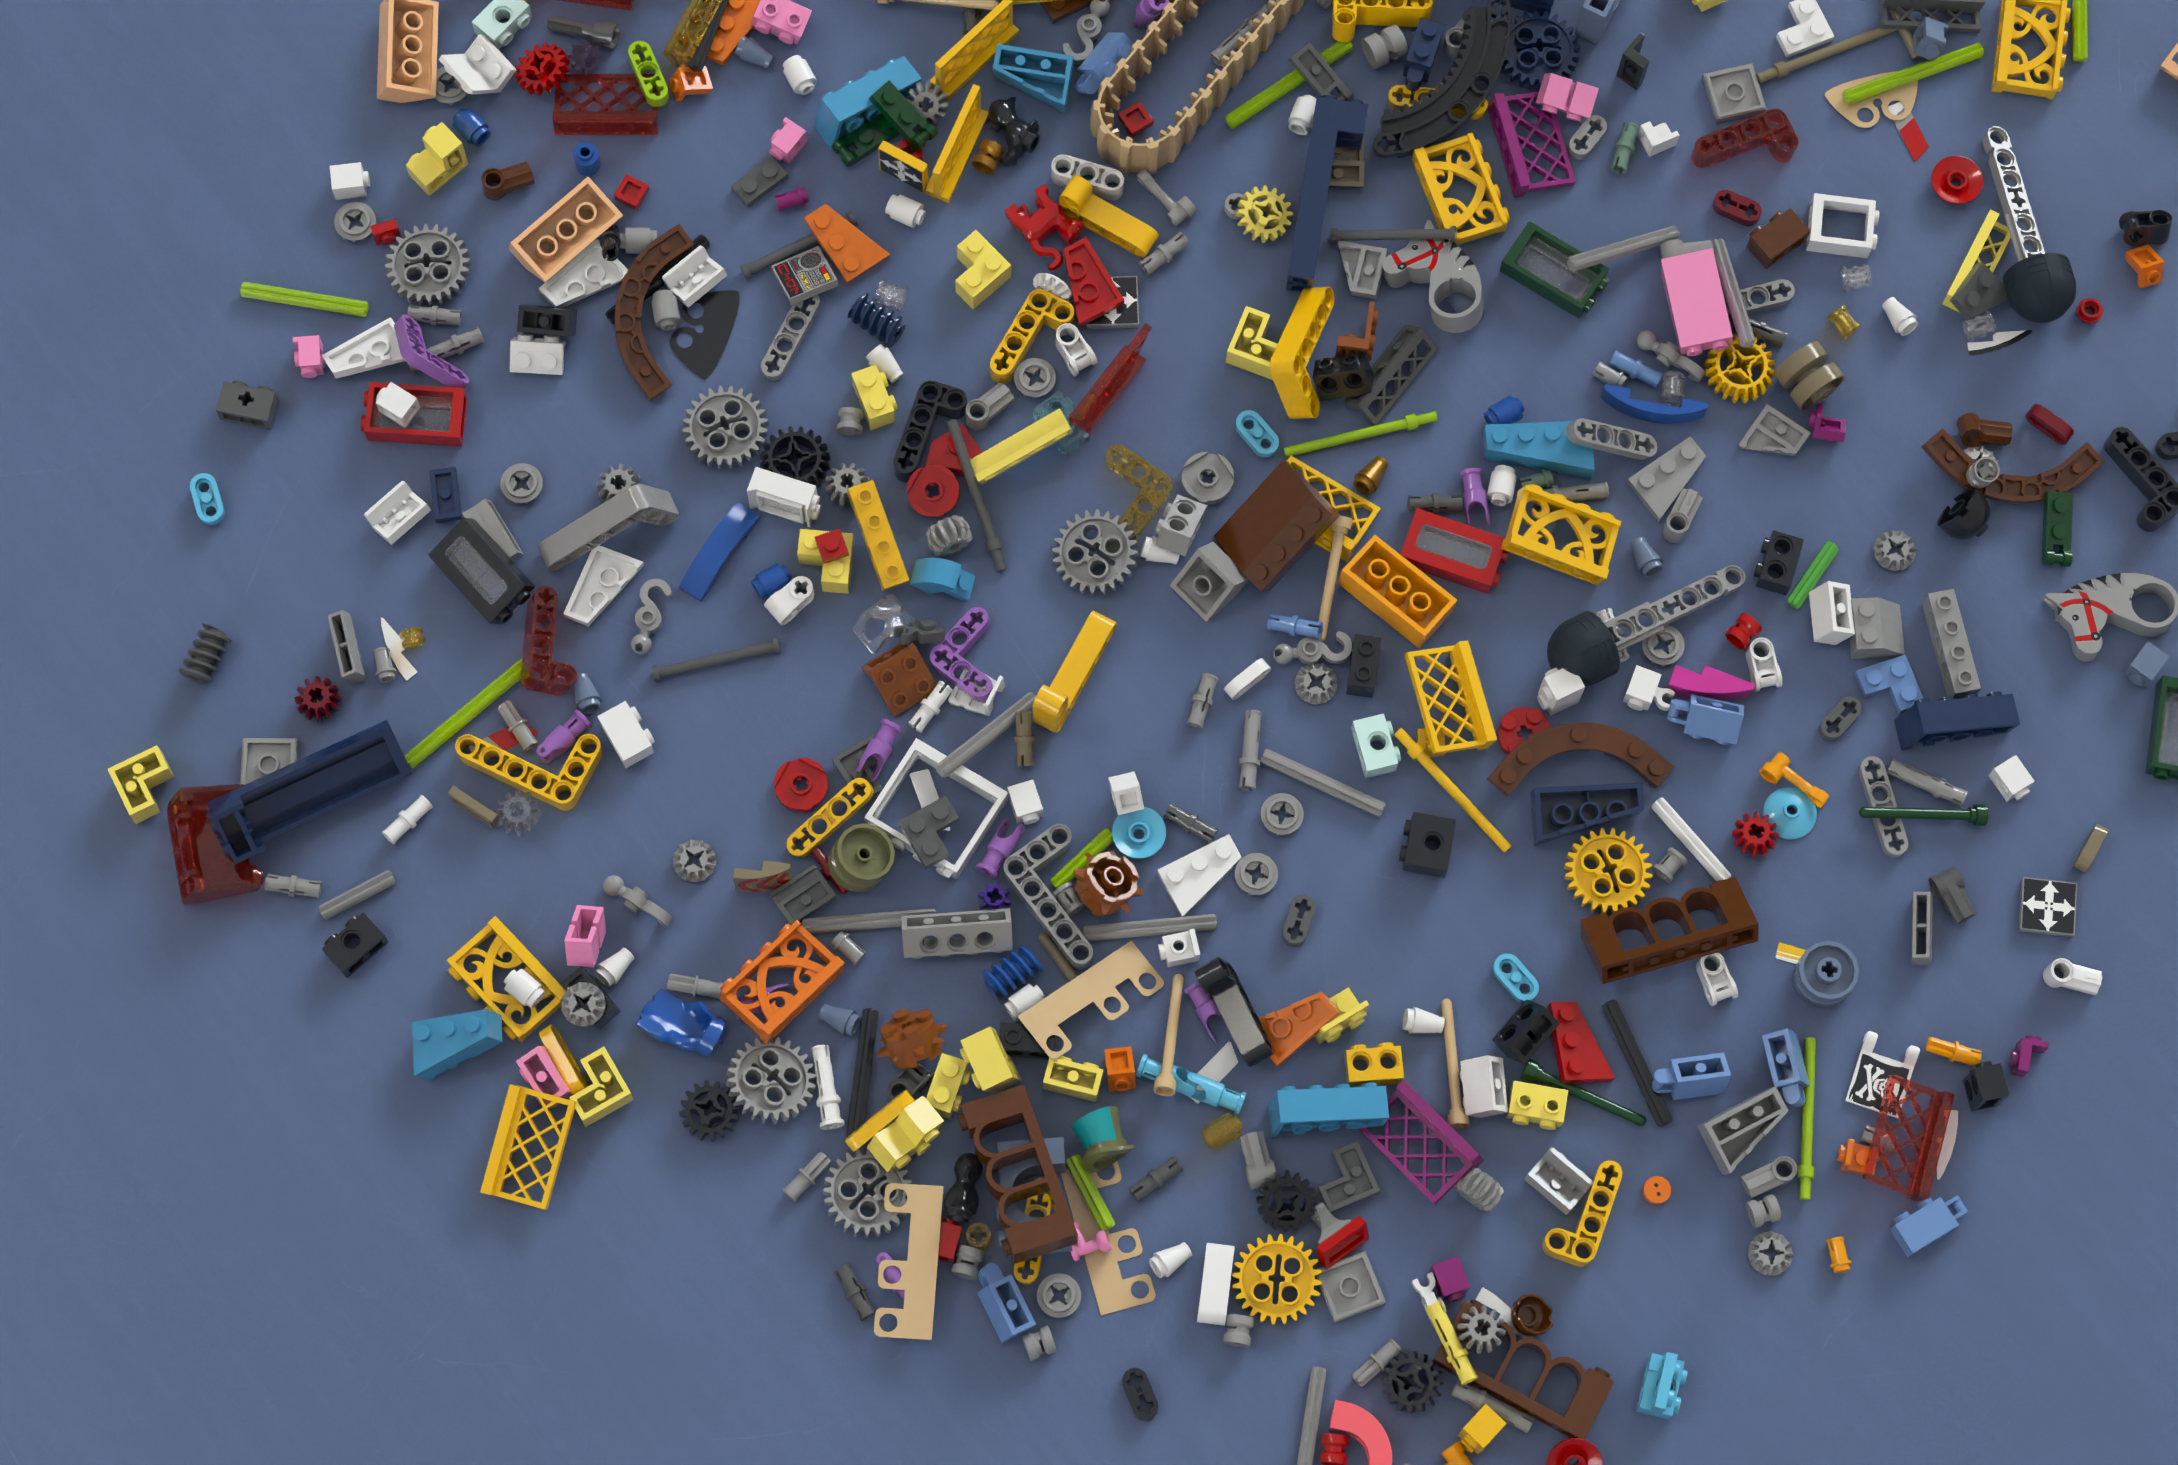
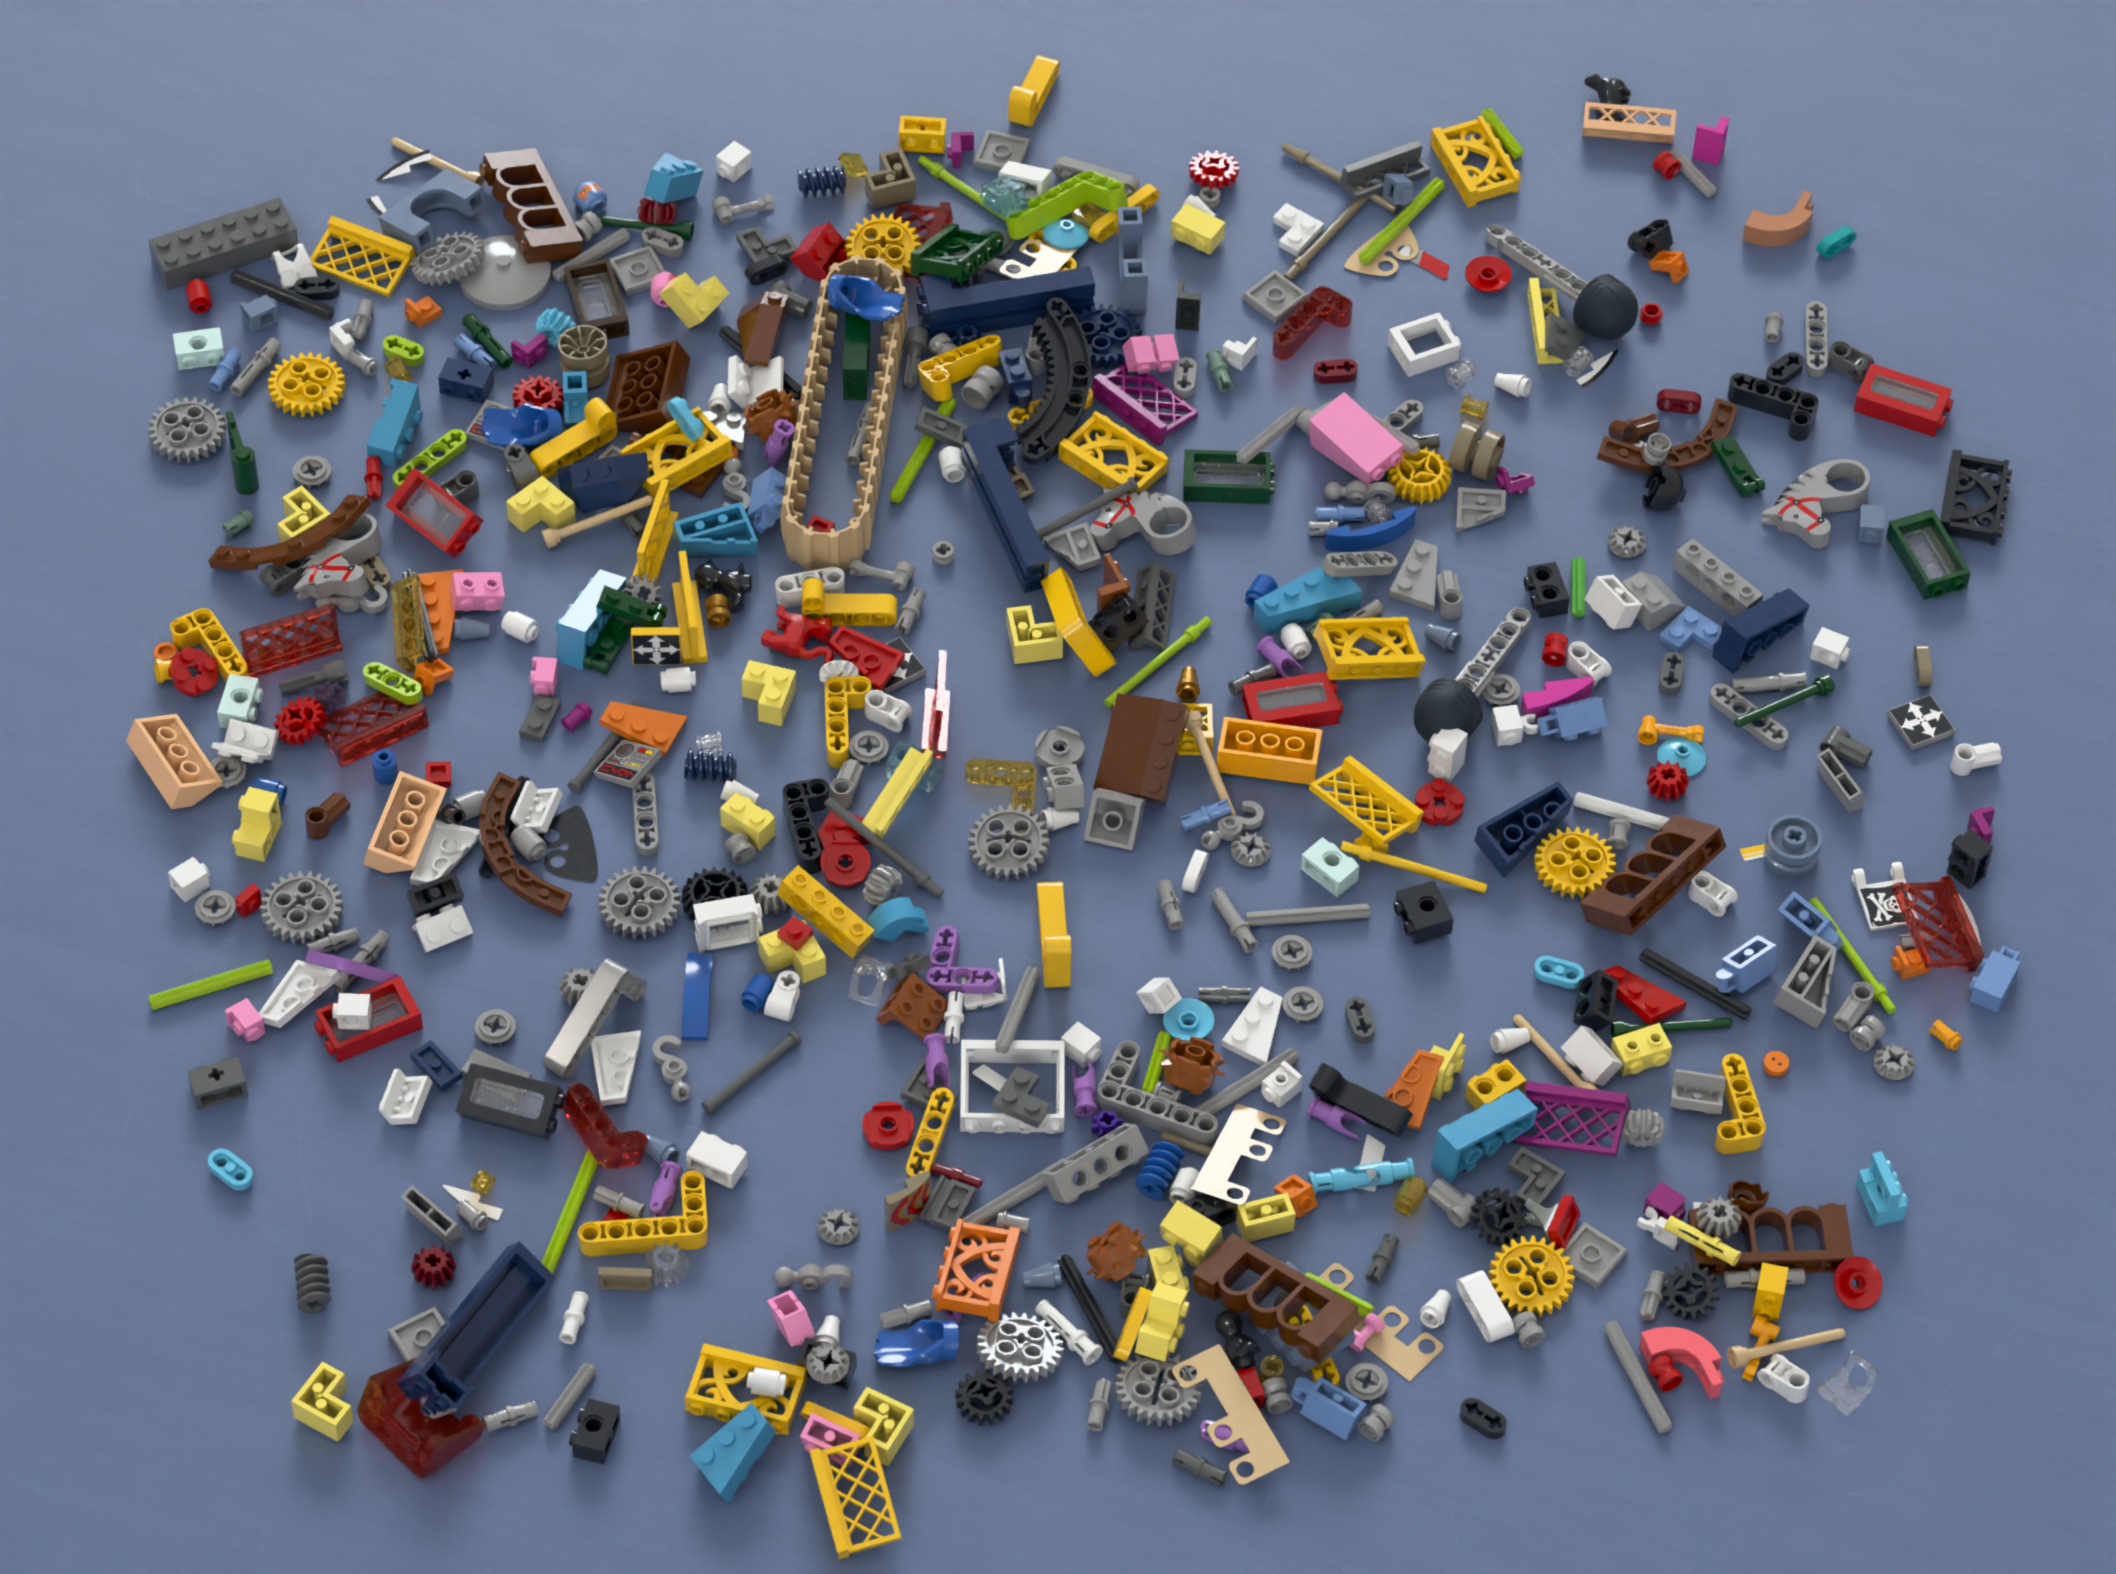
camera: 30 degrees left, 20 degrees down
(861, 857) = (978, 1147): olive wheel -> none
(1024, 738) = (1047, 999): dark tan pin -> none
(1101, 1138) = (1320, 1245): hat -> none
(1165, 1083) = (1342, 1177): tan piece -> none
(1255, 211) = (971, 545): light yellow gear -> none
(1258, 434) = (1077, 698): medium azure plate -> none
(1363, 666) = (1281, 815): black brick -> none
(1579, 737) = (1486, 780): reddish brown plate -> none
(1777, 238) = (1382, 374): reddish brown brick -> none
(1954, 1051) = (1926, 852): light orange axle -> none

